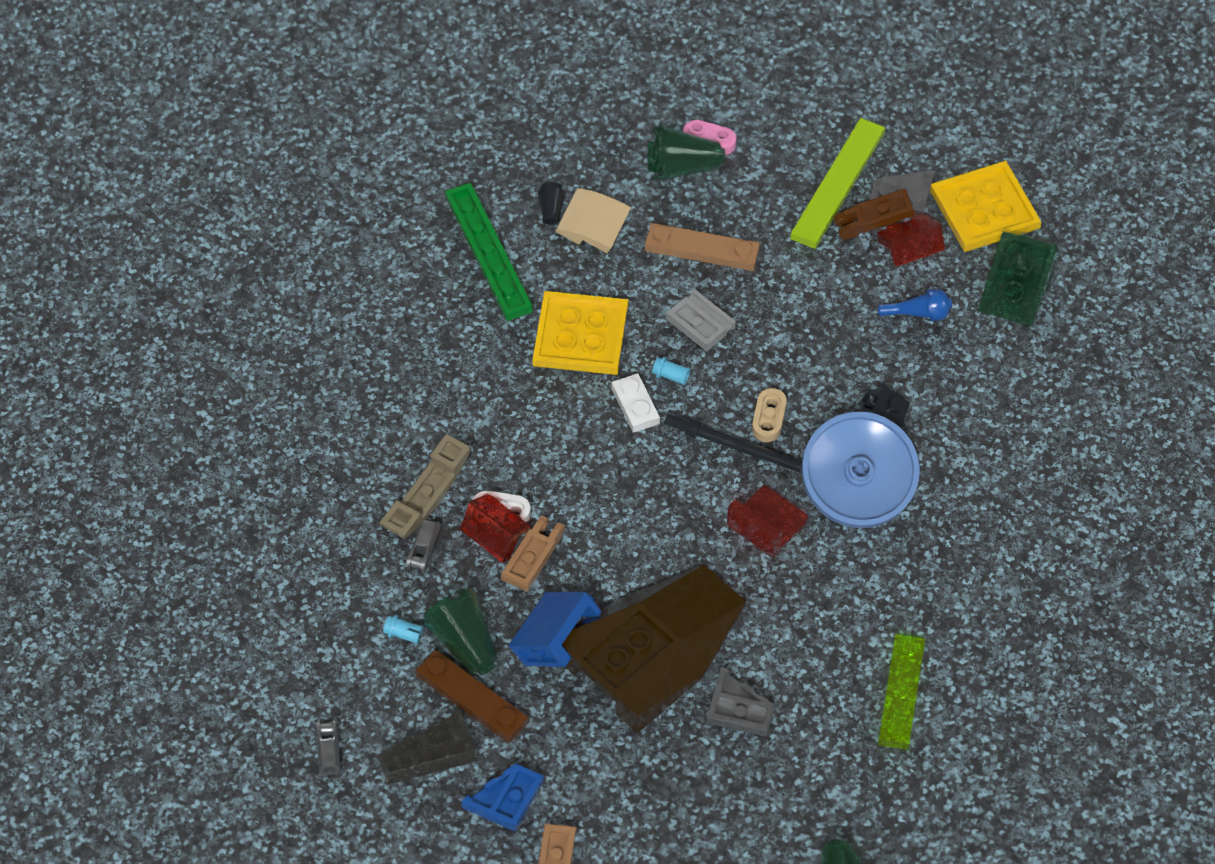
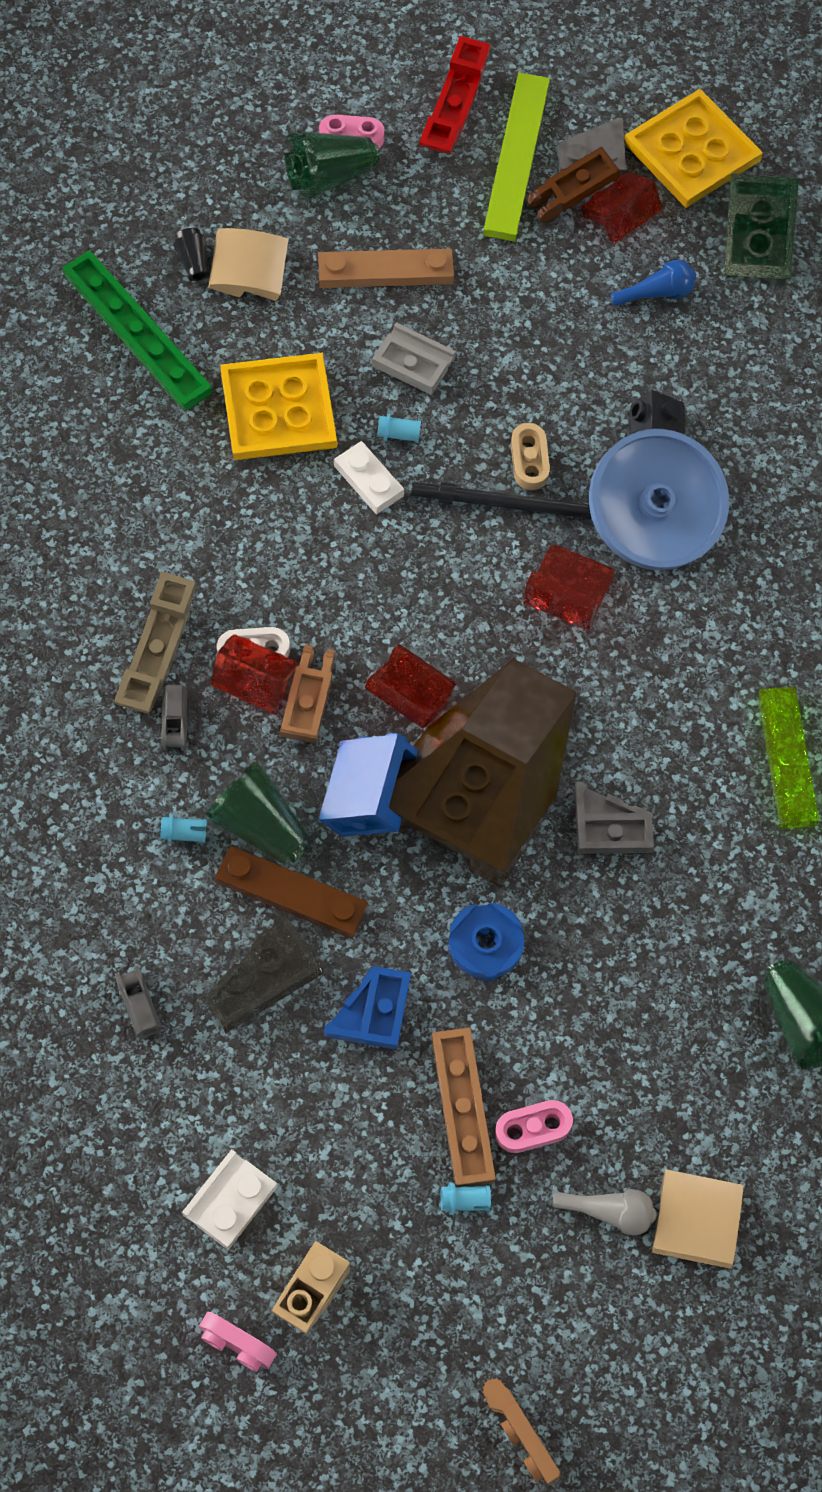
camera: 20 degrees left, 10 degrees up
(605, 784) = (488, 962): none -> blue plate
(615, 566) = (411, 686): none -> clear red bracket
(804, 126) = (457, 95): none -> red slope

